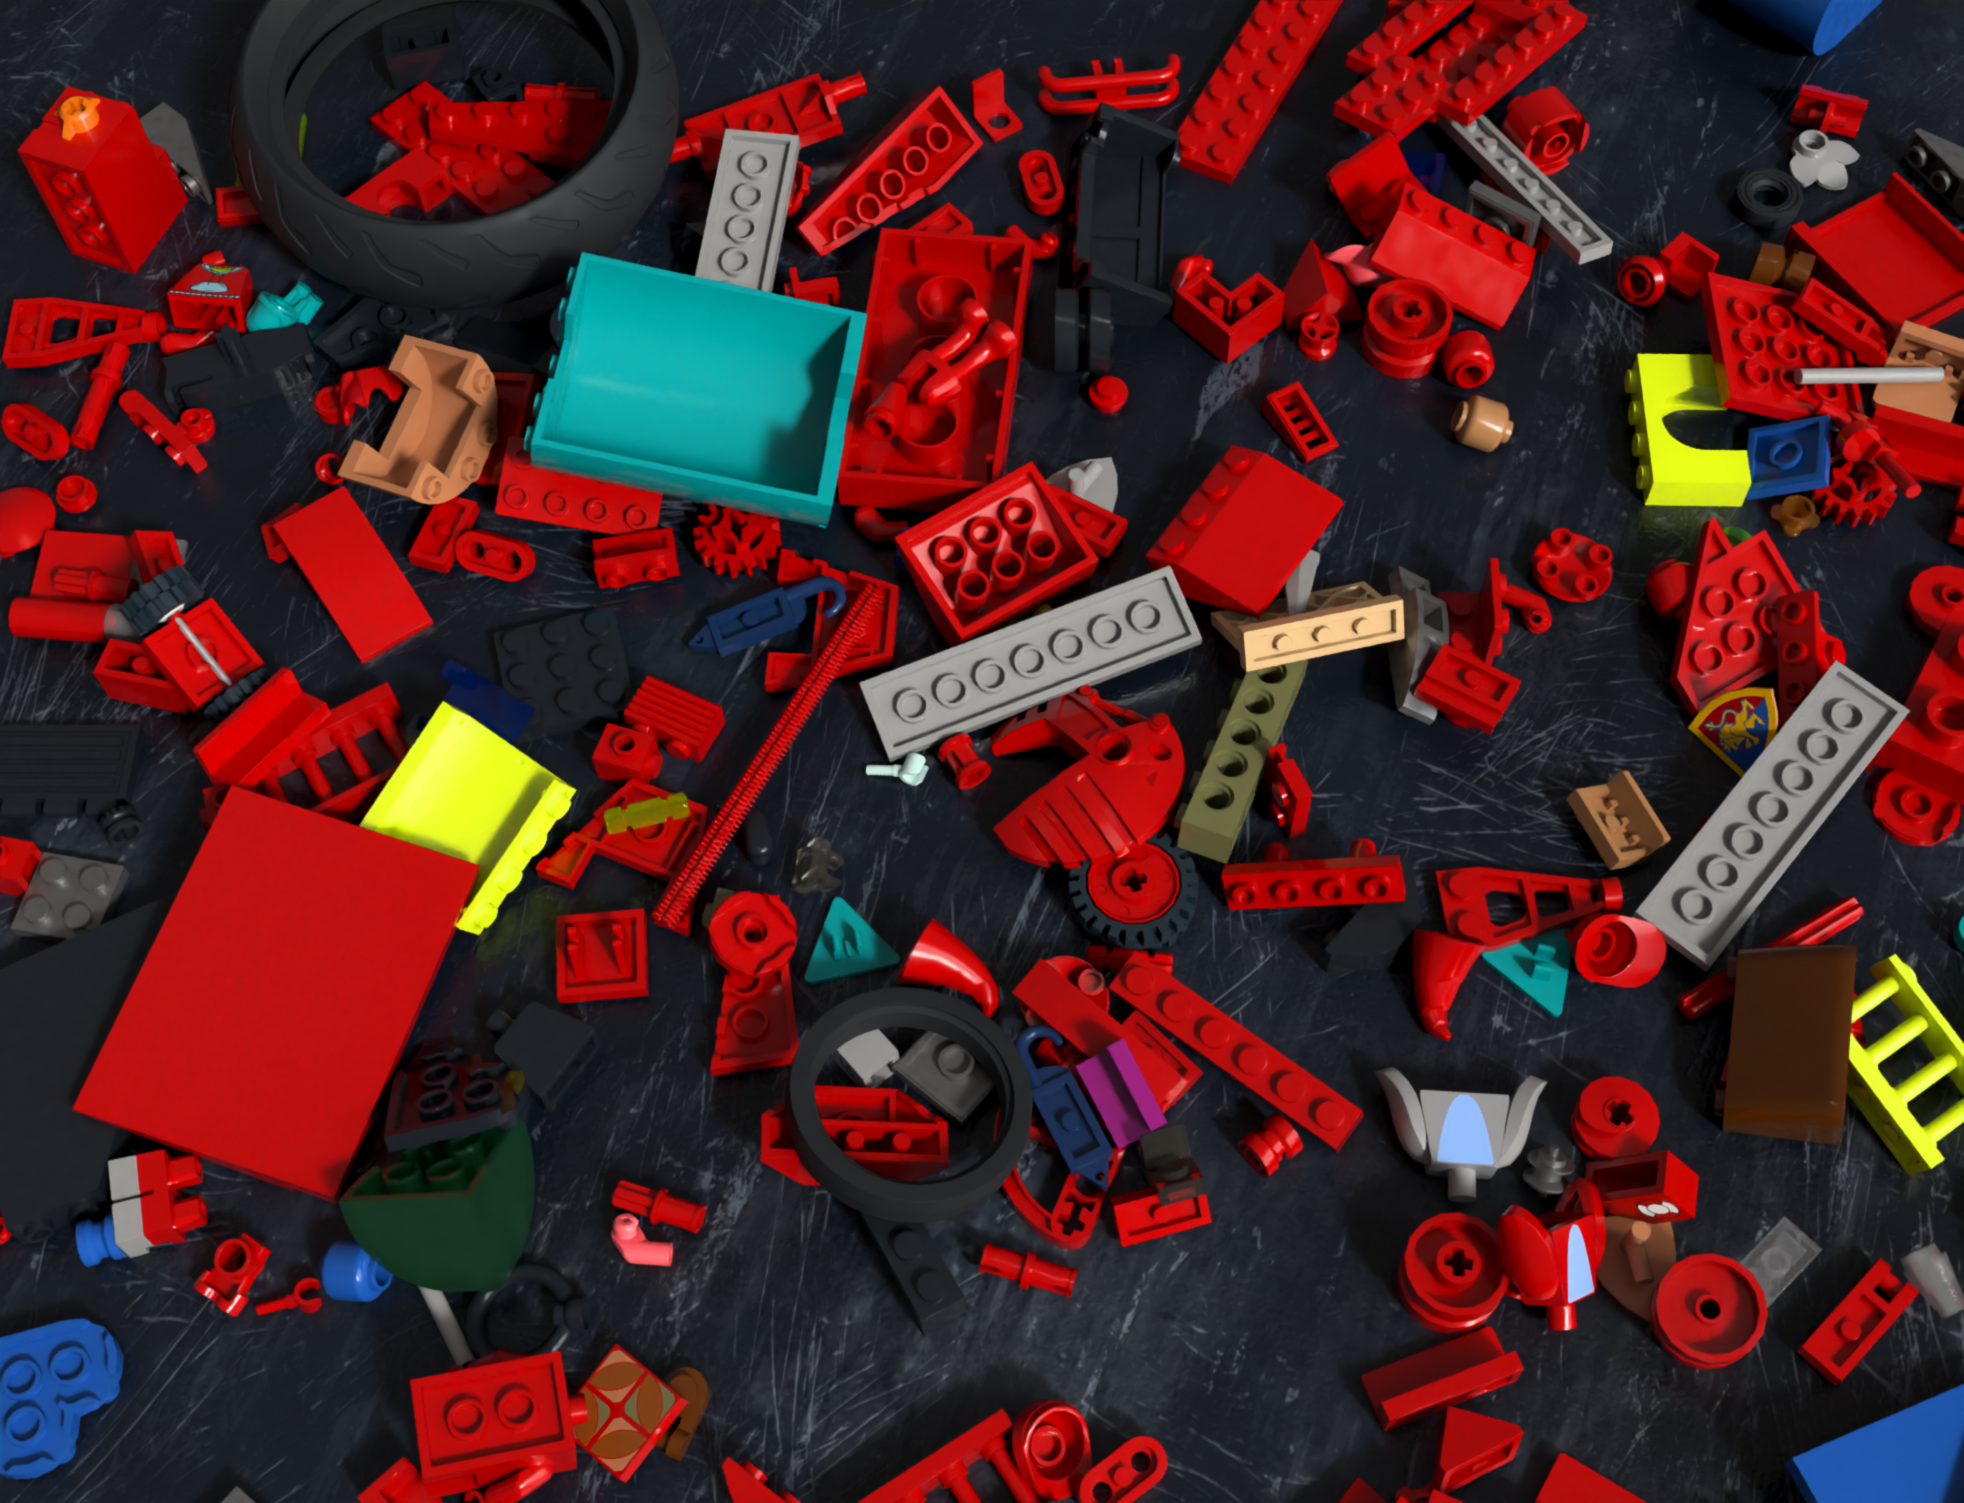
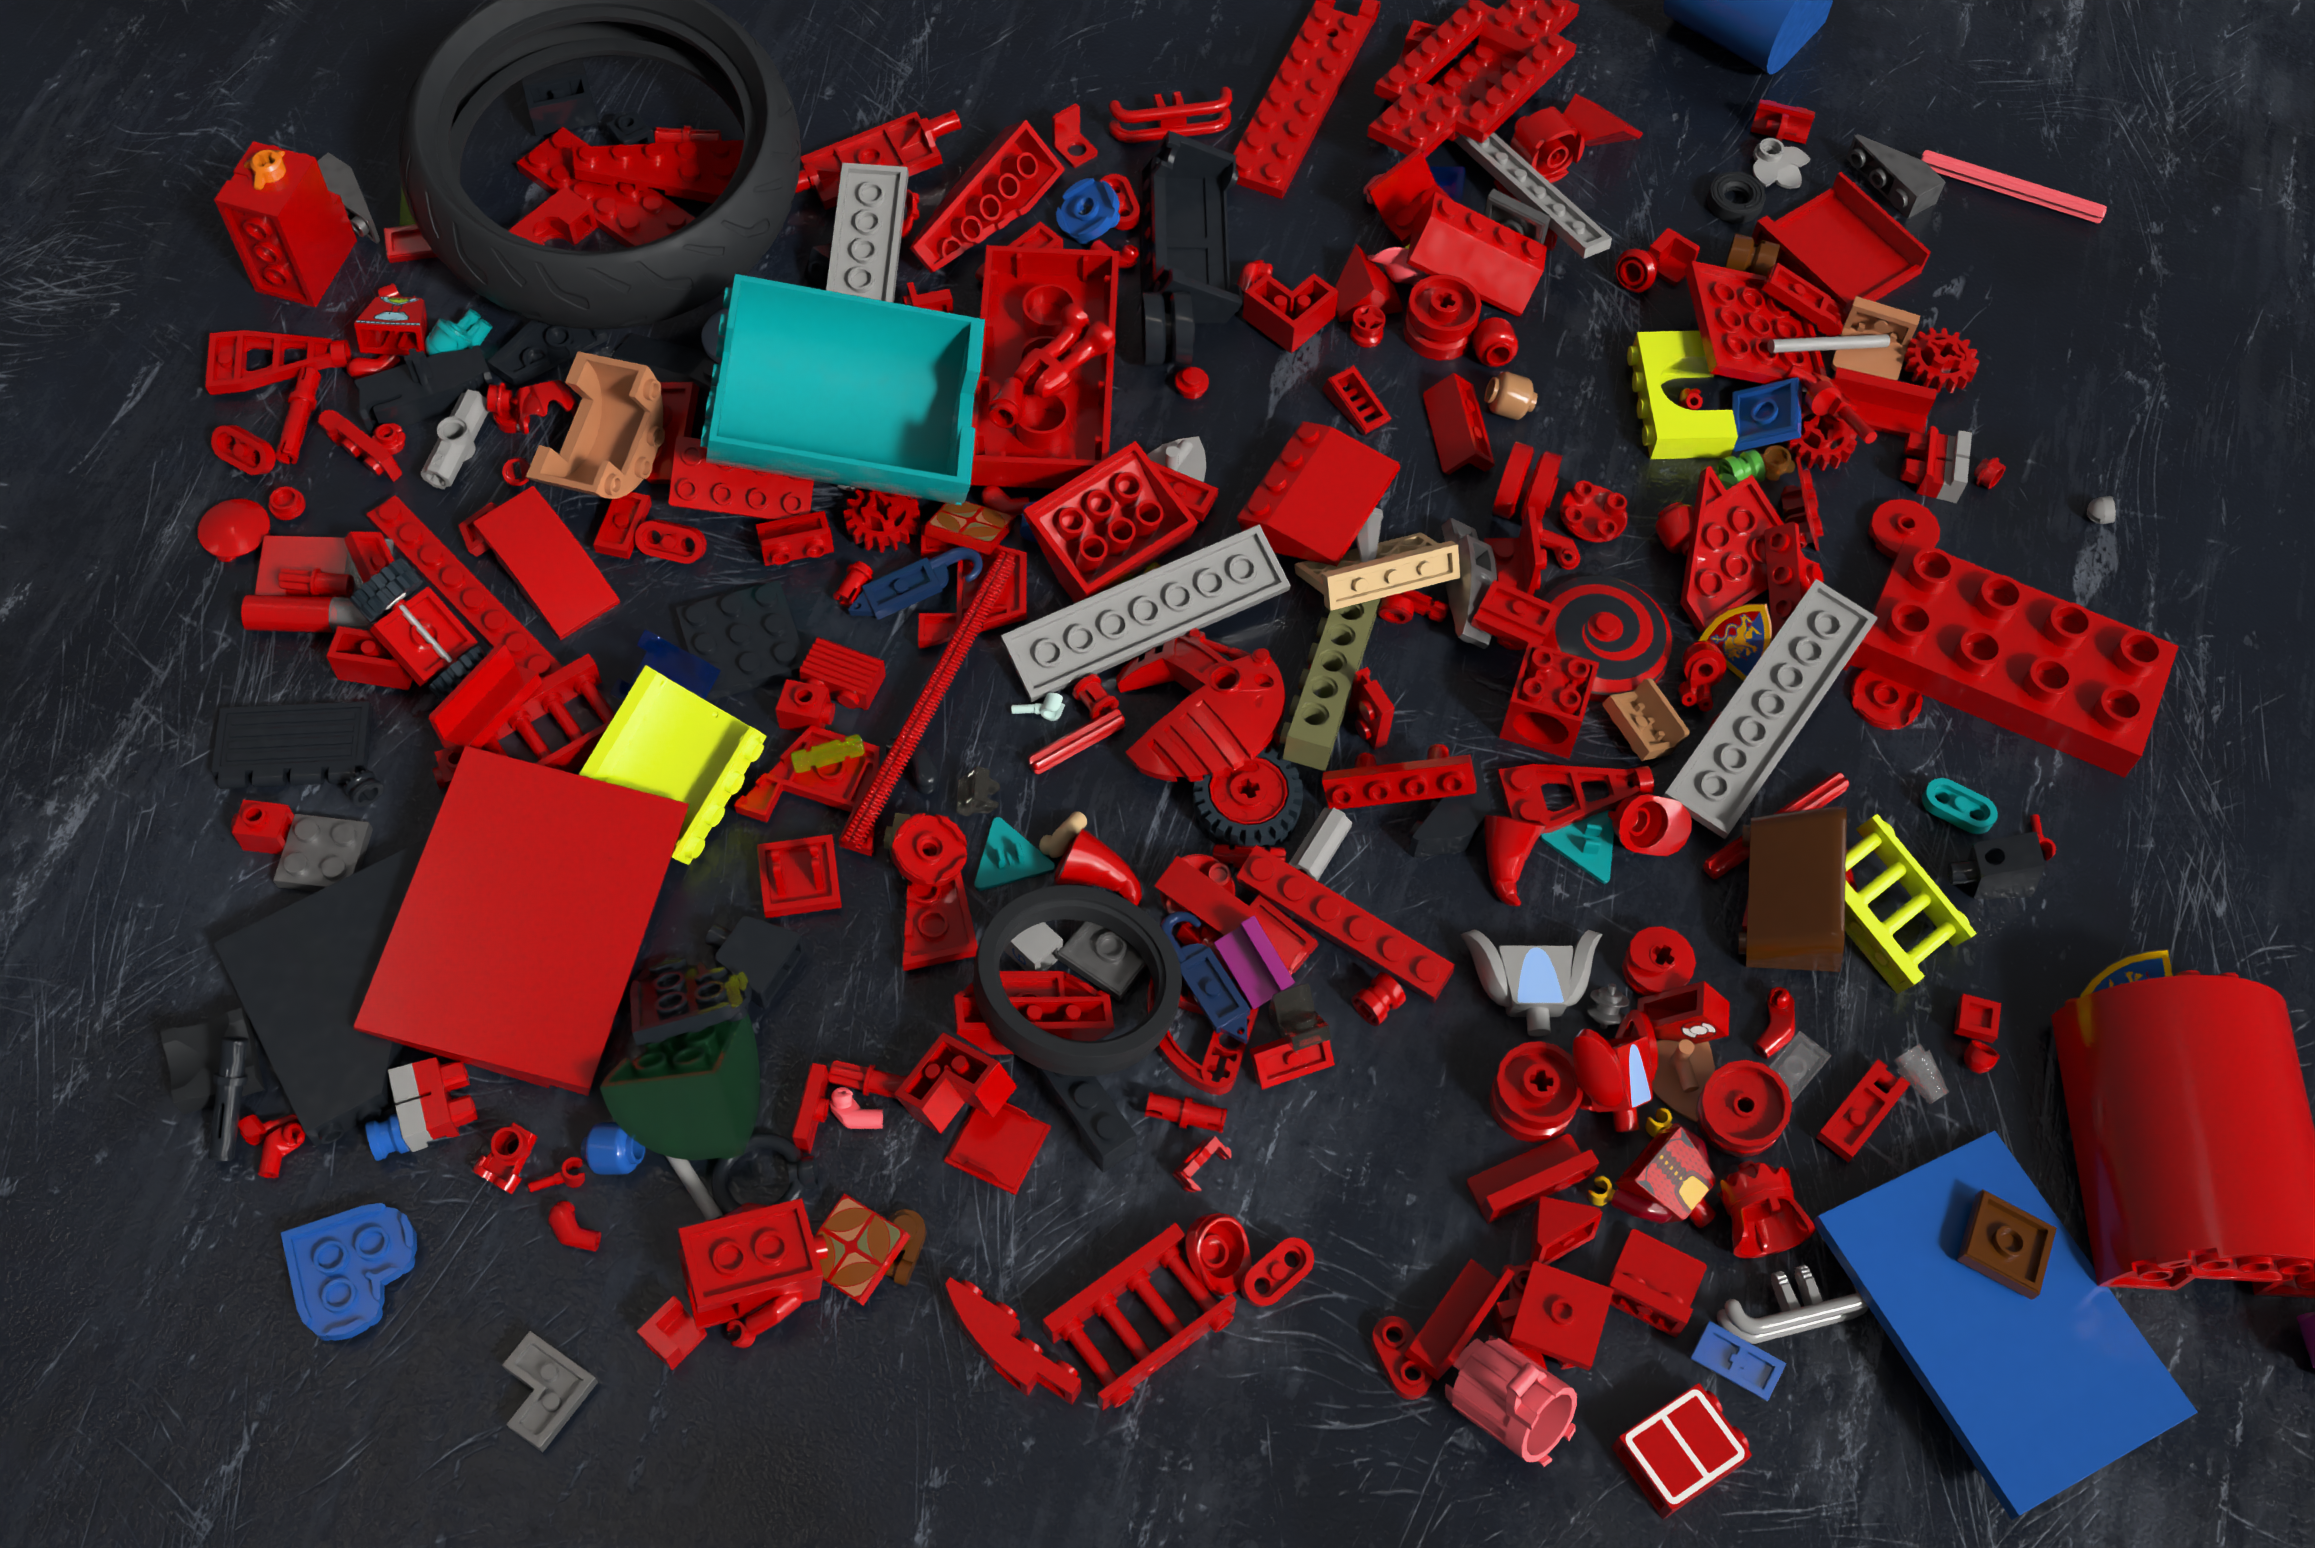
camera: 10 degrees left, 0 degrees up
(258, 600) = (459, 586): none -> red plate
(268, 429) = (455, 440): none -> light grey piece
(294, 1366) = (567, 1229): none -> red arm
(319, 385) = (499, 399): none -> red plate
(589, 1236) = (812, 1107): none -> red plate
(694, 617) = (851, 587): none -> red pin
(749, 1213) = (950, 1077): none -> red brick
(803, 1293) = (998, 1147): none -> red piece
(836, 552) = (970, 526): none -> tile
(905, 933) = (1063, 835): none -> tan arm
(938, 811) = (1076, 741): none -> axle
(1016, 202) = (1096, 222): none -> blue plate
(1036, 1329) = (1197, 1159): none -> red piece
(1215, 951) = (1321, 842): none -> light grey axle
(1327, 672) = (1396, 609): none -> red tile
(1358, 668) = (1424, 605): none -> red axle
(1417, 456) = (1458, 425): none -> red panel
(1489, 529) = (1526, 484): none -> red wheel
(1501, 791) = (1549, 700): none -> red brick
(1575, 718) = (1613, 626): none -> dish
(1605, 1392) = (1665, 1179): none -> torso
(1607, 108) = (1598, 124): none -> red slope
(1692, 761) = (1703, 668): none -> red piece
(1697, 435) = (1690, 399): none -> red arm
(1724, 1443) = (1763, 1211): none -> red hat
(1762, 516) = (1741, 467): none -> bright green wheel
(1762, 1206) = (1781, 1025): none -> red arm
(1824, 572) = (1801, 507): none -> red hinge

